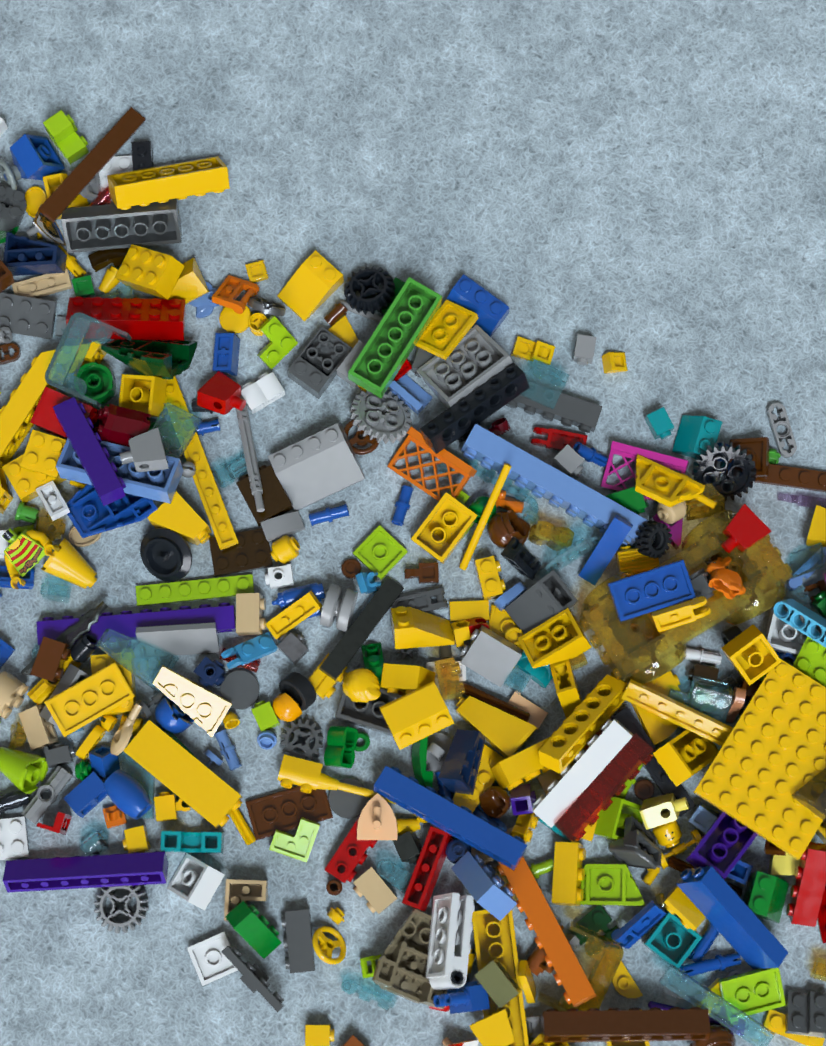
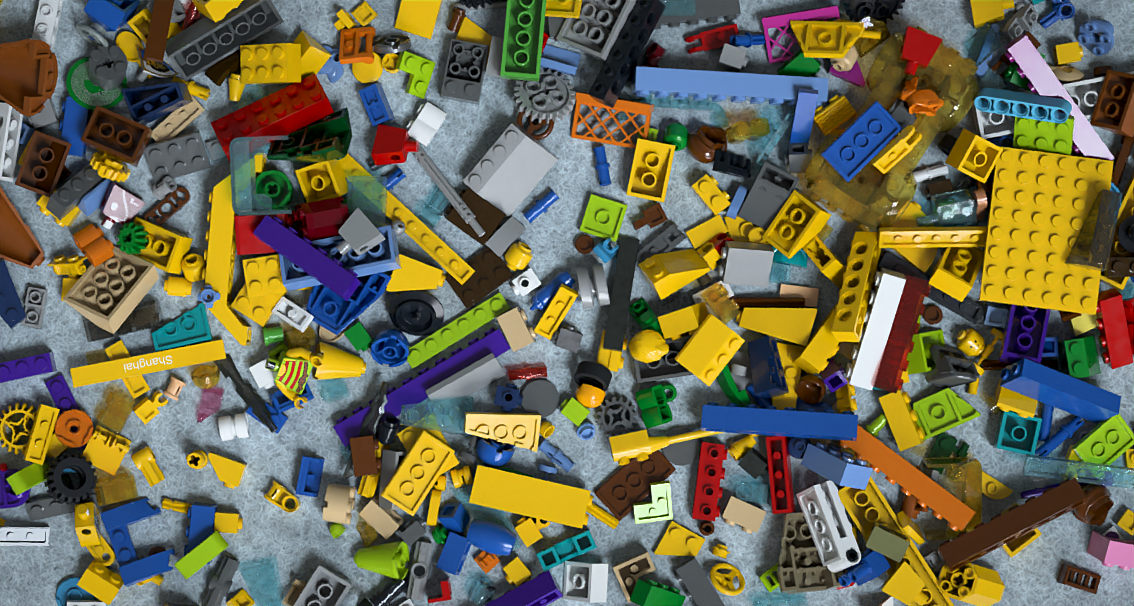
camera: 25 degrees left, 10 degrees up
(83, 286) = (216, 105): green tile -> none
(103, 552) = (359, 337): none -> green brick
(124, 733) = (461, 488): tan piece -> none
(125, 575) = (390, 347): none -> blue cylinder
(236, 268) = (345, 20): none -> yellow tile
(250, 650) = (533, 360): dark azure hinge -> none
(302, 888) = (679, 542): none -> yellow wing
(377, 821) = (717, 455): light nougat shield -> none
(485, 516) = (682, 141): yellow piece -> none
(509, 503) = (694, 118): orange arm -> none
(585, 581) = (798, 157): none -> dark grey brick
(639, 925) = (983, 433): blue plate -> none
(661, 540) = (847, 97): black tyre -> none
(662, 810) = (957, 326): light yellow torso -> none

